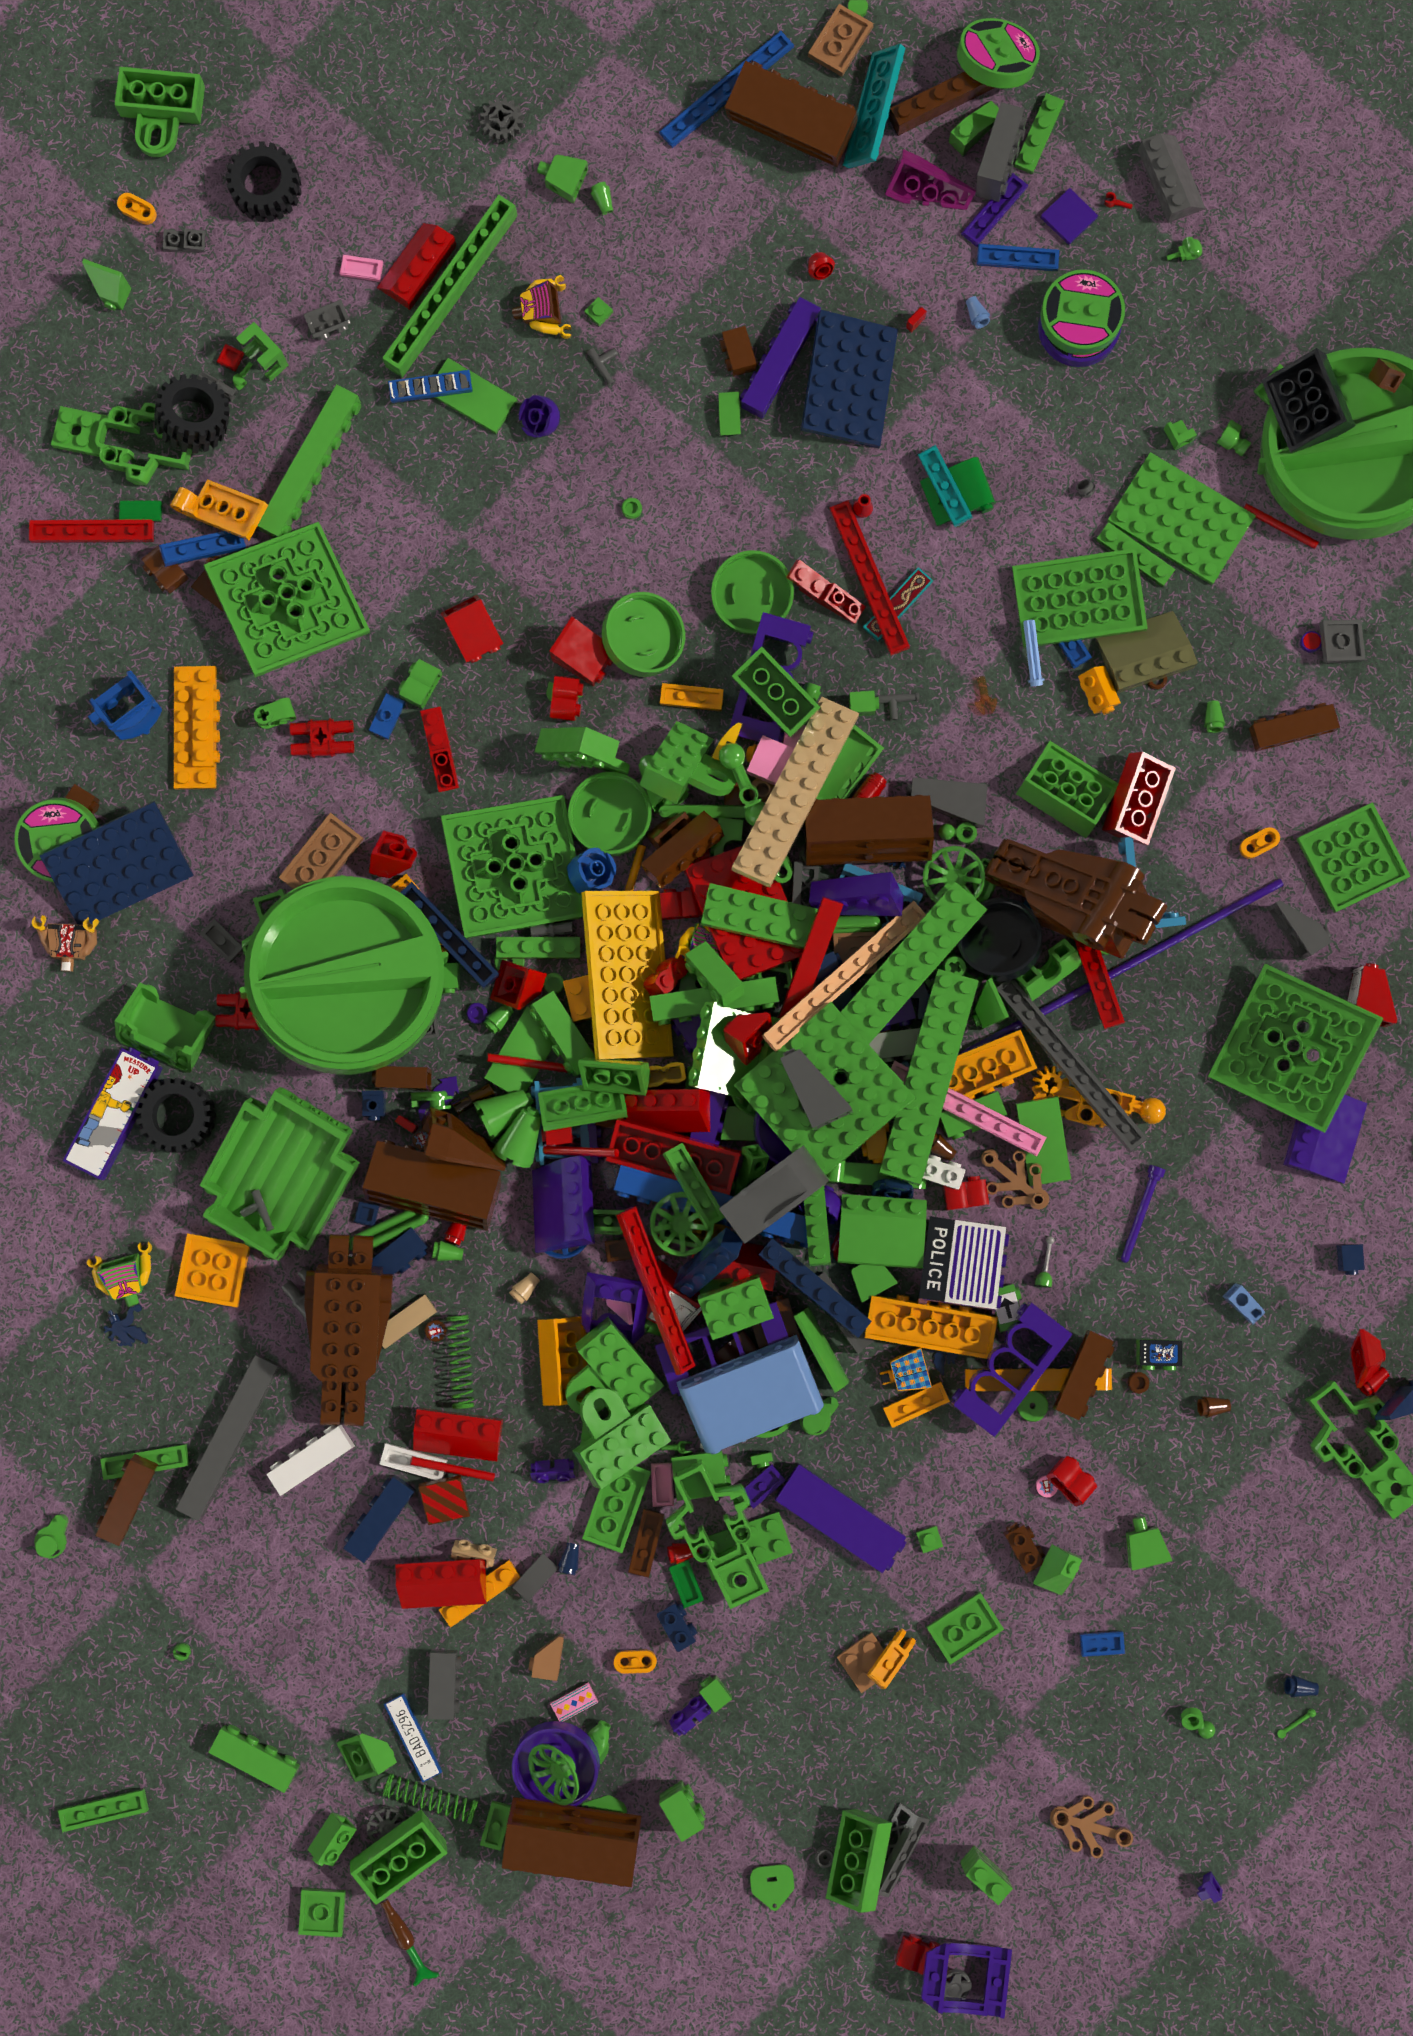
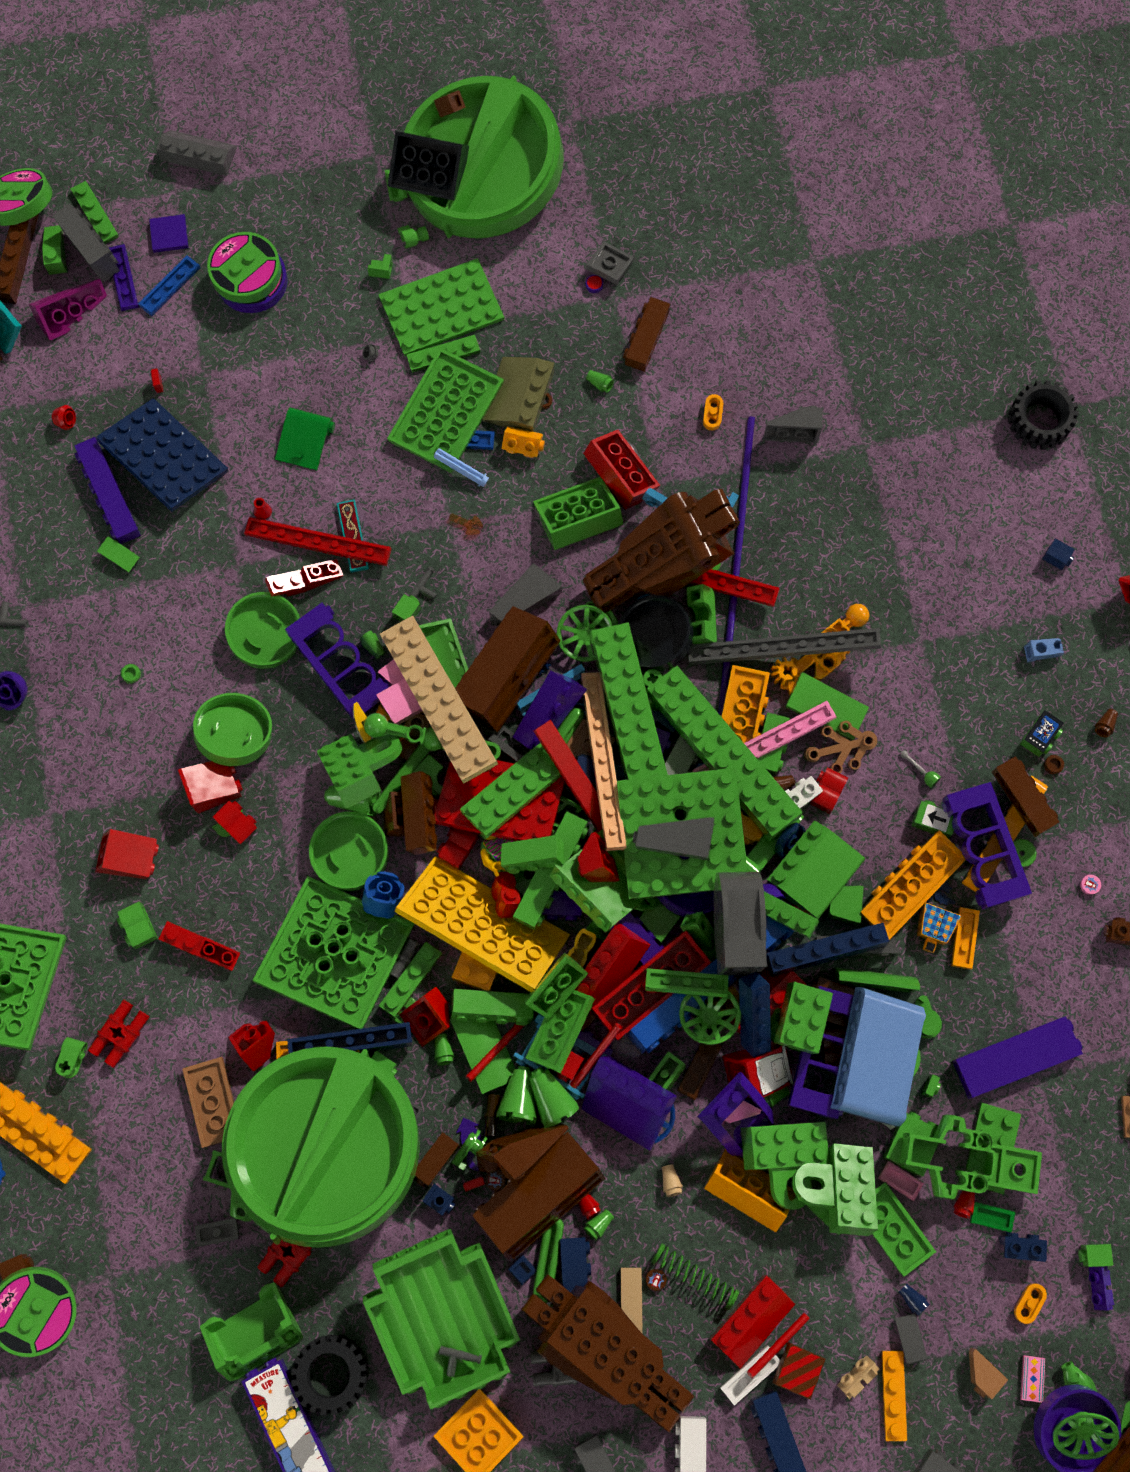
camera: 60 degrees left, 10 degrees down
(67, 941) = (119, 1365): torso -> none
(117, 864) = (89, 1276): dark blue plate -> none
(387, 716) = (141, 970): blue plate -> none
(441, 1583) = (867, 1422): red slope -> none
(476, 1013) = (426, 1064): dark purple tile -> none
(544, 1472) = (830, 1269): dark purple hinge -> none
(554, 983) = (446, 987): bright green tile -> none
(580, 748) = (282, 833): bright green brick -> none
(635, 868) = (404, 862): light orange bar -> none
(646, 1542) = (940, 1226): reddish brown plate -> none
(655, 1290) = (748, 1071): red tile -> none
(678, 1447) = (880, 1146): bright green hand -> none
(691, 697) = (306, 729): light orange plate -> none
(738, 351) = (78, 516): reddish brown brick -> none
(763, 1485) = (953, 1098): dark purple plate -> none
(776, 692) = (352, 660): bright green brick -> none
(871, 786) = (473, 645): red head -> none
(929, 1539) = (1076, 1001): bright green plate -> none
(945, 486) = (293, 443): teal tile -> none
(947, 832) = (548, 615): bright green plate -> none
(963, 1263) = (882, 826): panel -> none
(978, 314) = (187, 337): medium blue cone -> none
(989, 1007) = (700, 673): bright green slope -> none
(1072, 1481) = (1099, 862): red brick -> none
(1115, 202) = (183, 197): red hand -> none
(1154, 1175) = (906, 646): dark purple piece -> none
(1190, 250) = (257, 174): bright green piece -> none
(1282, 526) = (499, 247): red bar -> none
(1308, 1088) = (918, 494): bright green plate -> none
(1328, 1152) = (954, 511): dark purple slope -> none
(1353, 857) = (768, 359): bright green plate -> none
(1372, 992) = (878, 412): red slope -> none

